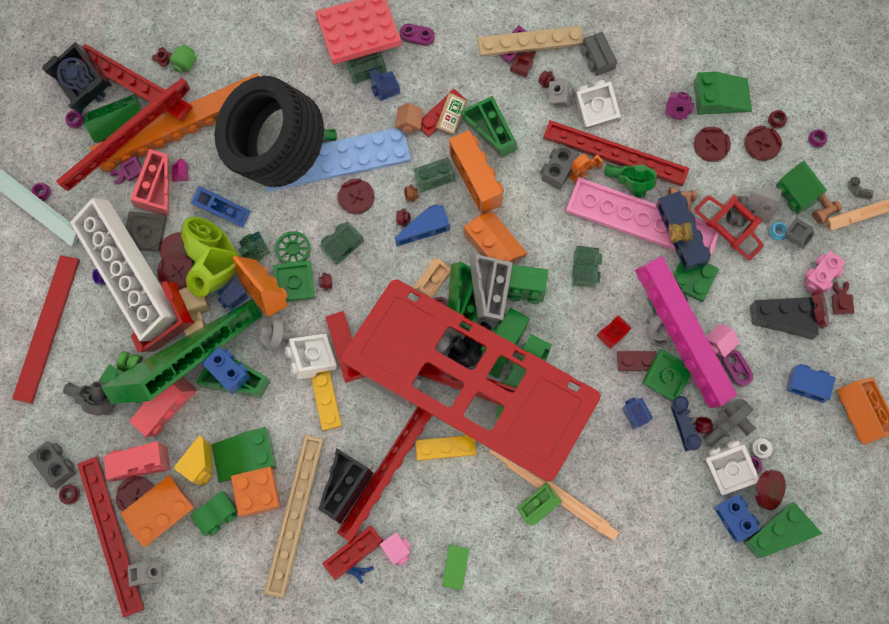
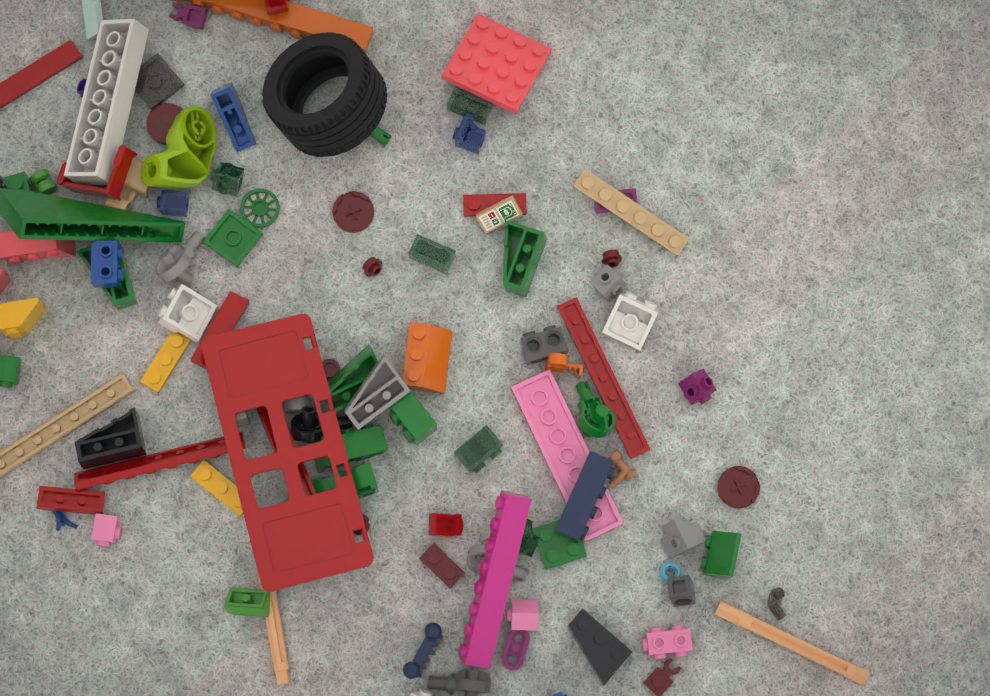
camera: 35 degrees right, 5 degrees up
(153, 184) = (198, 48): coral wedge -> none
(175, 269) = (147, 139): dark red tile -> none
(180, 171) = (231, 55): dark pink slope -> none
(243, 453) = (62, 344): green slope -> none
(256, 492) = (43, 382): orange brick -> none
(260, 285) = (201, 218): orange slope -> none
(325, 281) = (257, 262): dark red plate -> none
(341, 242) = (301, 241): clear green brick -> none
(356, 156) = (389, 176): light blue plate -> none
(408, 118) = (459, 185): nougat brick -> none
(410, 193) = (399, 252): dark orange plate -> none
(416, 34) = (543, 114): magenta plate -> none
(427, 224) = (386, 291): blue slope -> none
(432, 278) = (346, 340): light nougat slope -> none
(455, 567) = (138, 587): bright green slope -> none
(476, 172) = (464, 288): orange brick -> none
(523, 63) = (605, 226): dark red plate -> none
(598, 54) = (679, 277): dark grey brick -> none
(637, 412) = (397, 605): clear blue brick -> none
(666, 375) = (450, 599): green plate -> none
(680, 232) = (568, 493): clear yellow wheel -> none
(703, 425) = (440, 666): dark red plate -> none
(712, 144) = (694, 447): dark red tile -> none
(721, 93) = (748, 413): green slope -> none
(734, 216) = (649, 527): dark grey plate -> none
(734, 242) = (618, 514): red bar -> none
(777, 114) = (779, 478): dark red plate -> none
(817, 133) = (789, 520): magenta plate -> none
(821, 309) = (631, 668): dark red tile -> none
(831, 207) = (735, 595): nougat piece -> none

